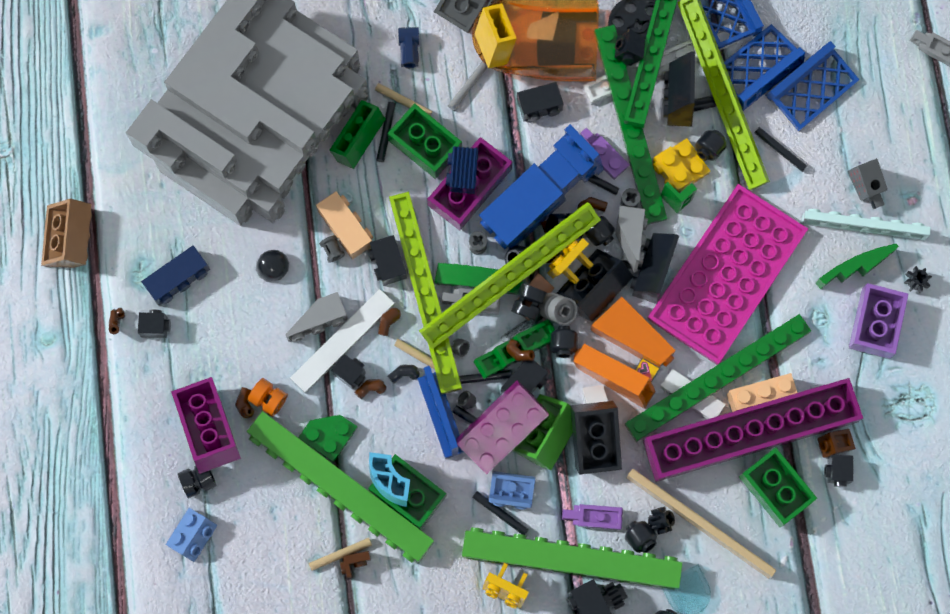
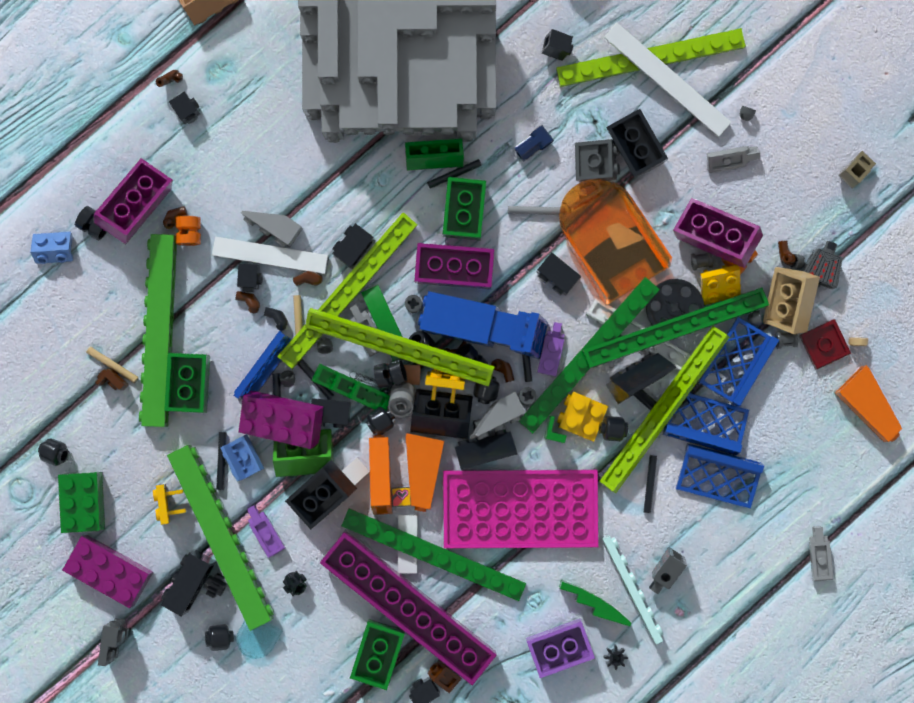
camera: 60 degrees right, 10 degrees up
(176, 276) = (232, 98): dark blue brick -> none
(272, 265) = (291, 163): black hair -> none
(328, 435) = (192, 295): green plate -> none
(332, 249) = (333, 198): dark grey bush -> none
(345, 224) = (358, 194): light nougat brick -> none
(387, 480) = (178, 364): medium azure brick -> none
(399, 98) = (488, 169): tan bar -> none
(463, 170) = (455, 255): dark blue brick -> none
(495, 35) = (579, 205): yellow brick -> none
(519, 355) = (345, 393): reddish brown arm -> none
(629, 47) = (646, 314): black brick -> none
(641, 536) = (272, 576): black head -> none
(700, 523) = (312, 614): tan tile -> none
(761, 392) = (442, 595): light nougat brick -> none

